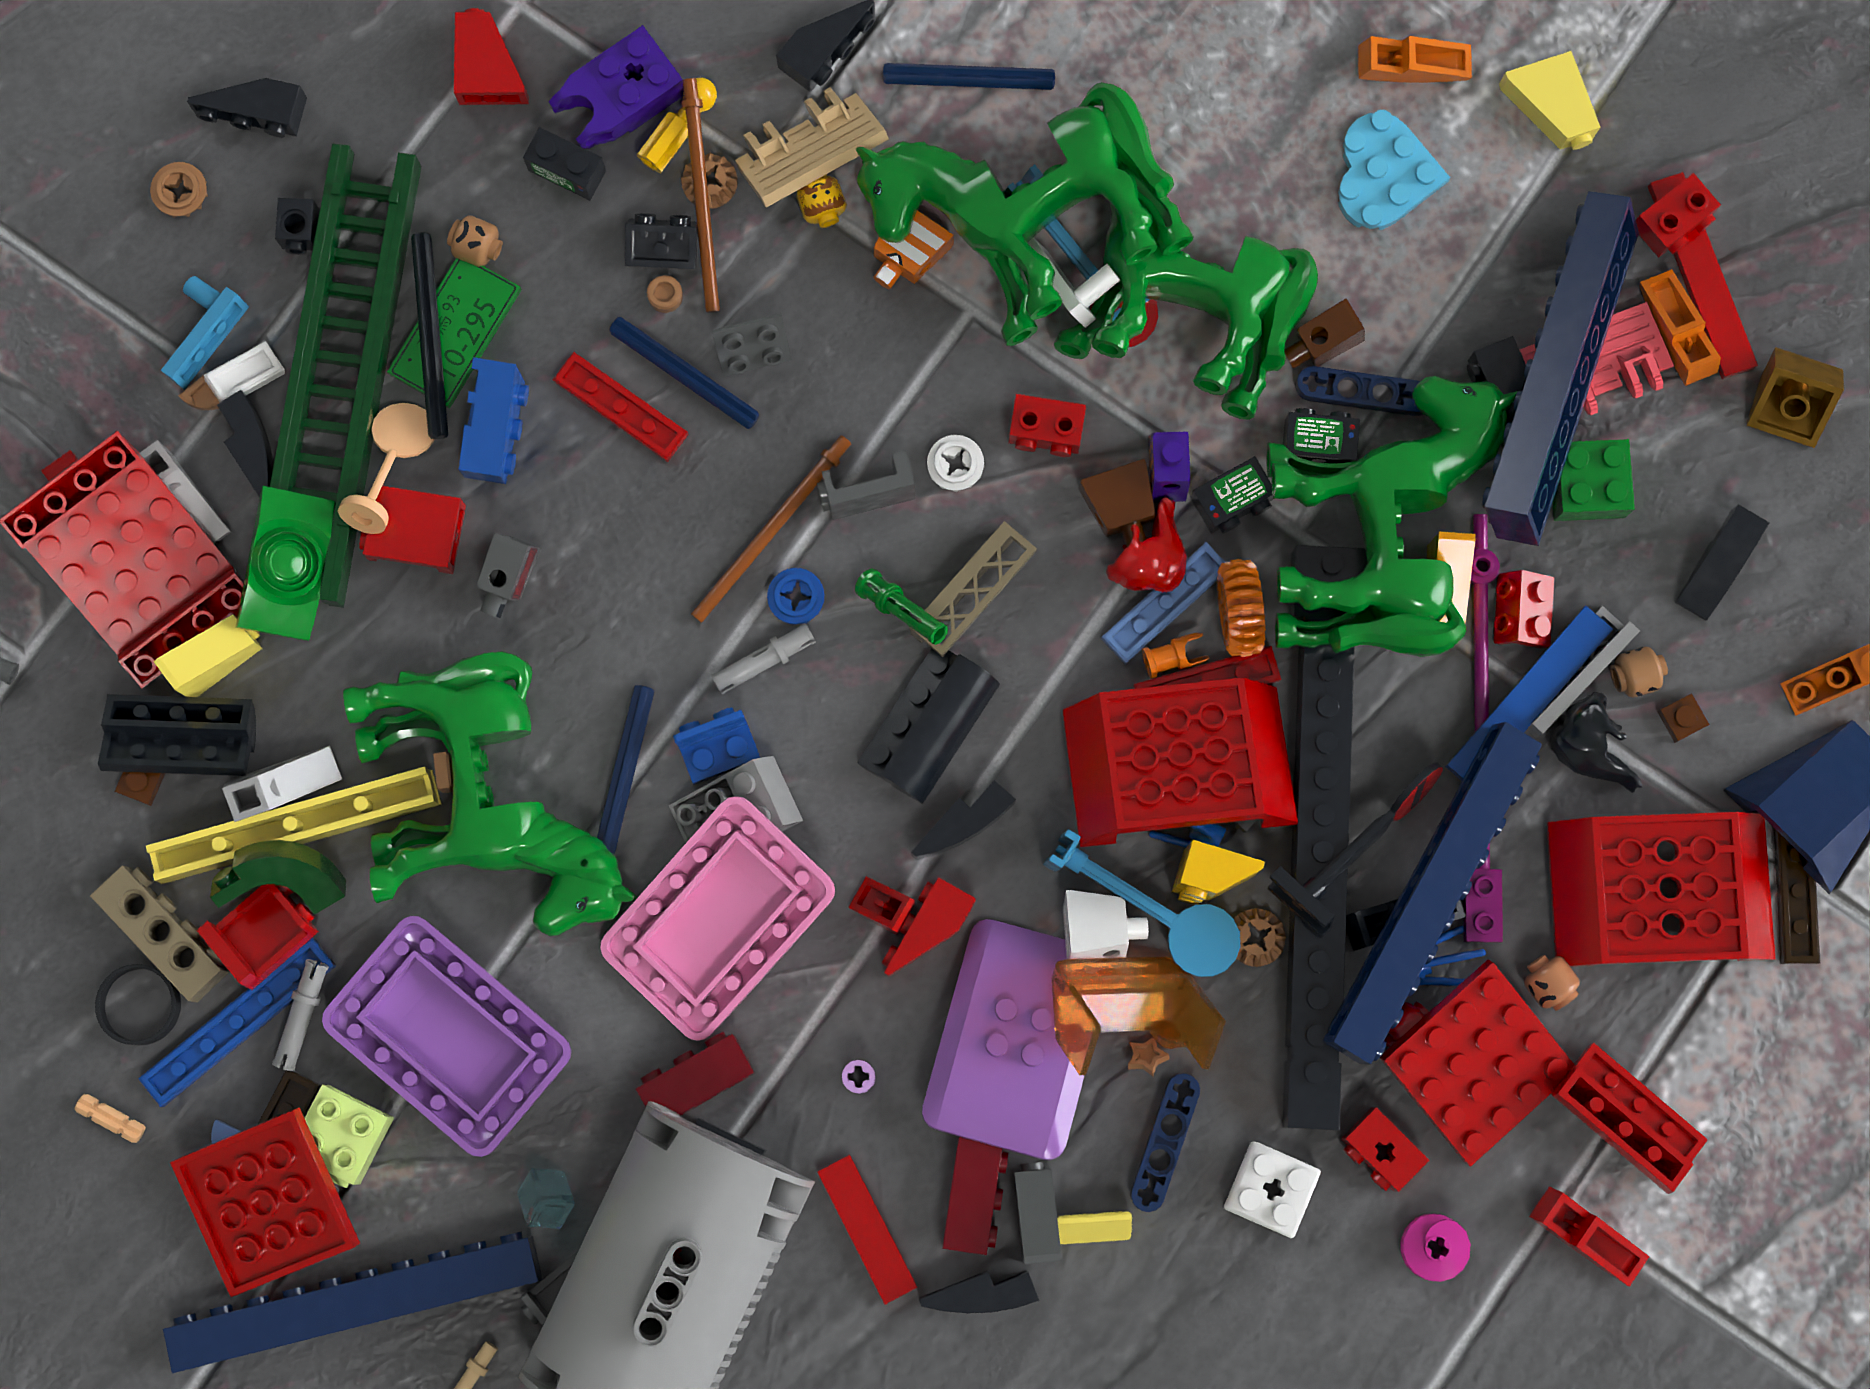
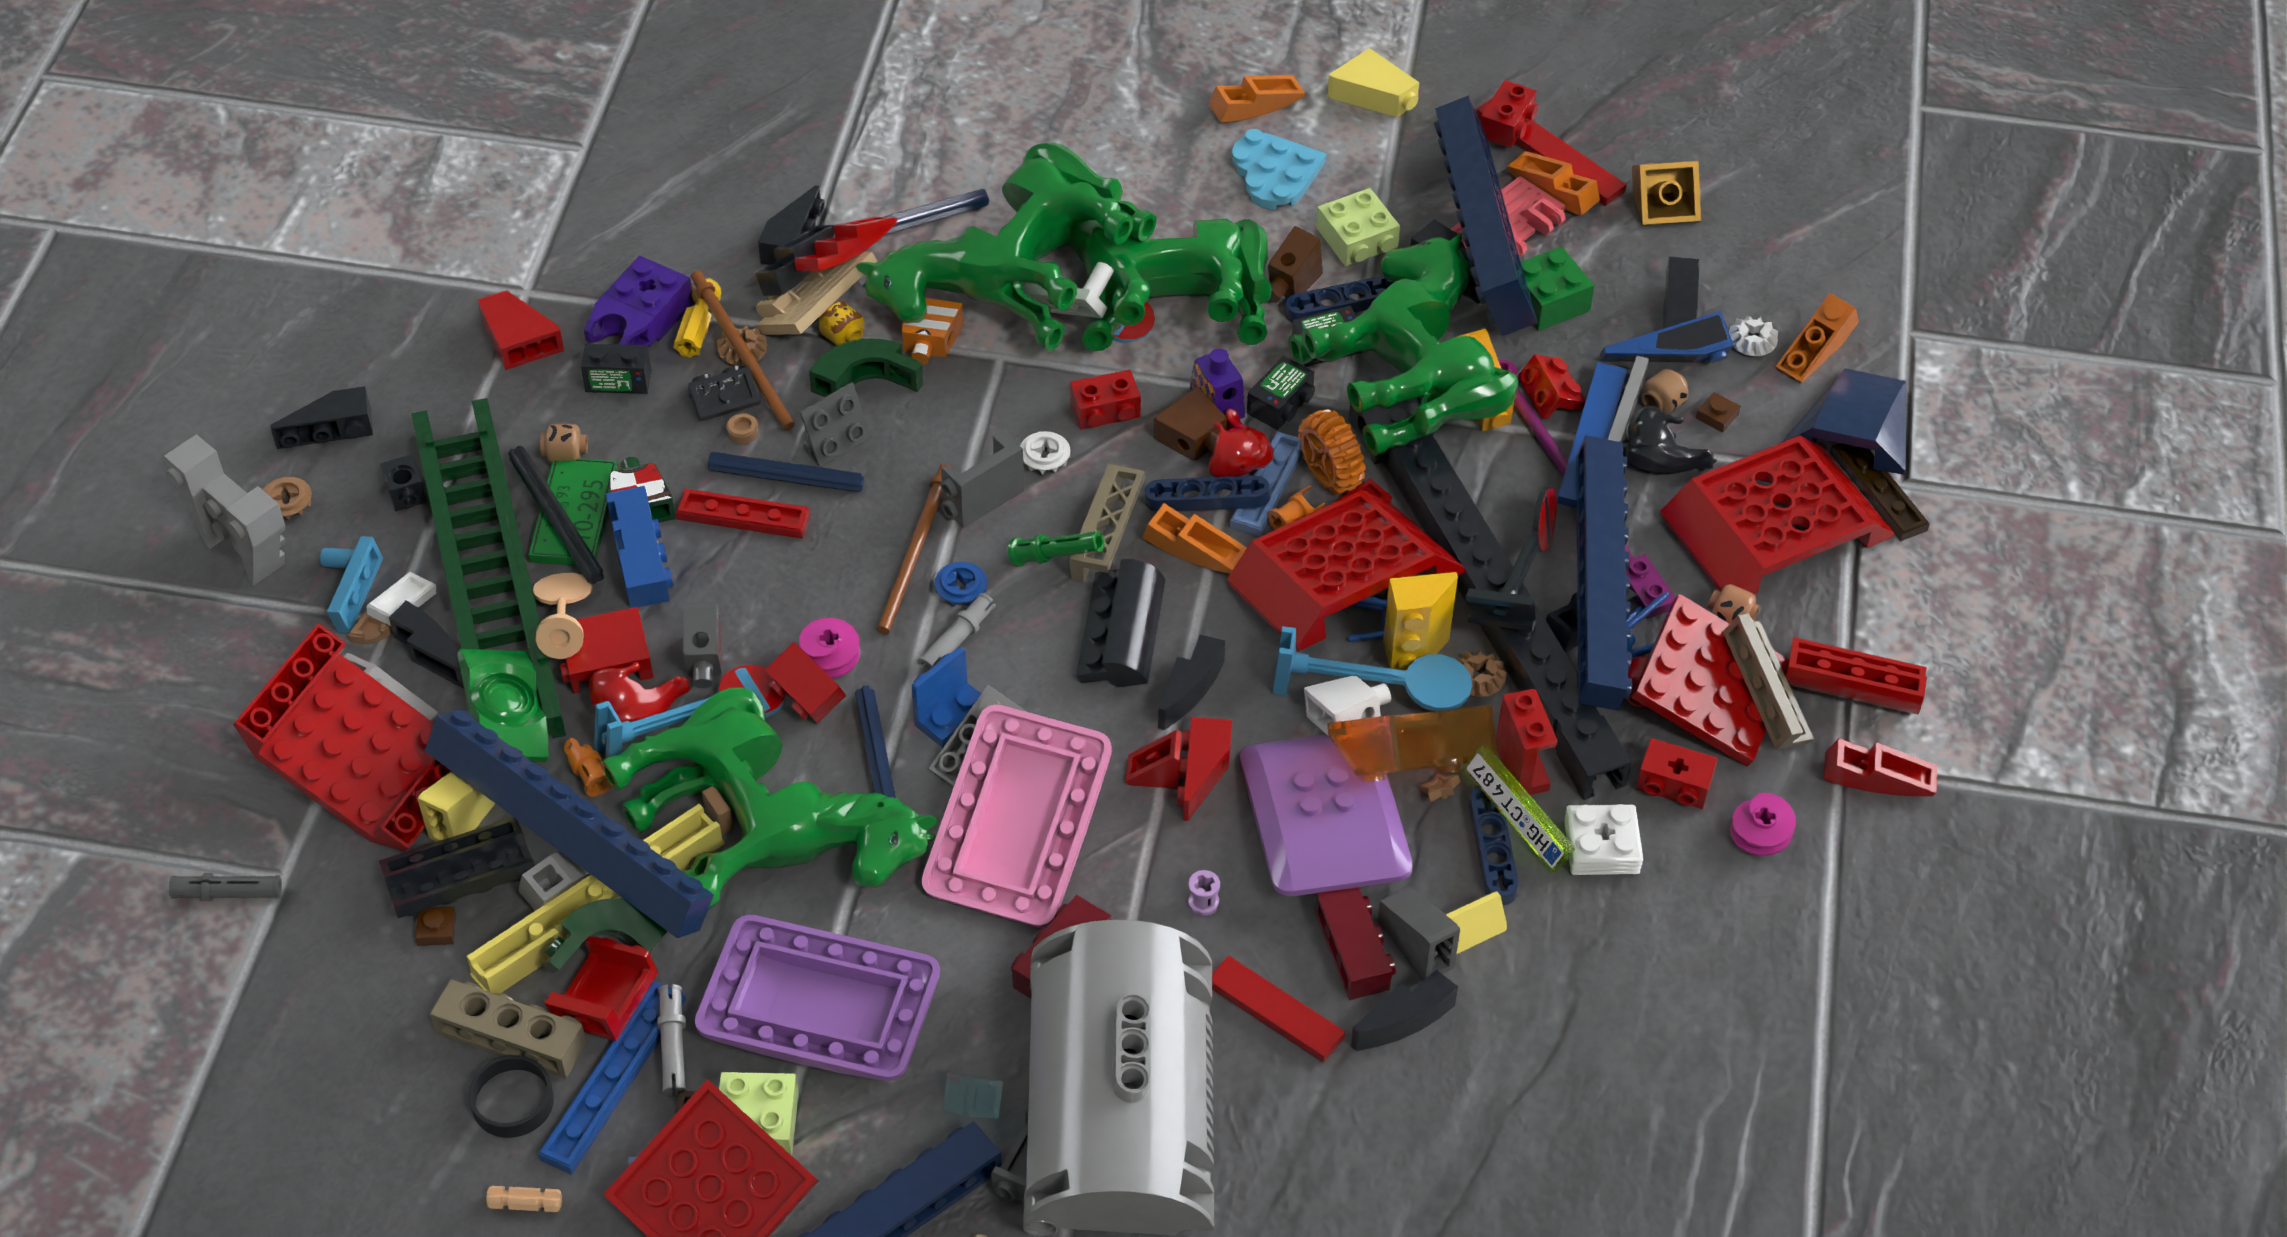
camera: 25 degrees left, 30 degrees down
(113, 248) = (227, 511): none -> light grey wedge
(281, 752) = (569, 823): none -> dark blue brick
(344, 660) = (587, 764): none -> orange piece
(409, 610) = (631, 699): none -> red piece
(524, 339) = (647, 475): none -> torso
(532, 633) = (612, 733): none -> dark azure piece
(585, 663) = (804, 683): none -> red brick
(623, 606) = (831, 645): none -> dark pink piece
(804, 100) = (782, 274): none -> black slope
(817, 259) = (863, 361): none -> dark green arch
(872, 101) = (849, 241): none -> red slope
(1052, 650) = (1193, 540): none -> orange slope
(1090, 599) = (1207, 489): none -> dark blue beam
(1204, 1127) = (1519, 808): none -> tile
(1247, 1061) = (1520, 735): none -> red panel
(1427, 306) = (1357, 227): none -> yellowish green brick
(1524, 1095) = (1767, 683): none -> dark tan fence
(1699, 620) = (1686, 342): none -> slope
(1771, 648) = (1753, 344): none -> white gear

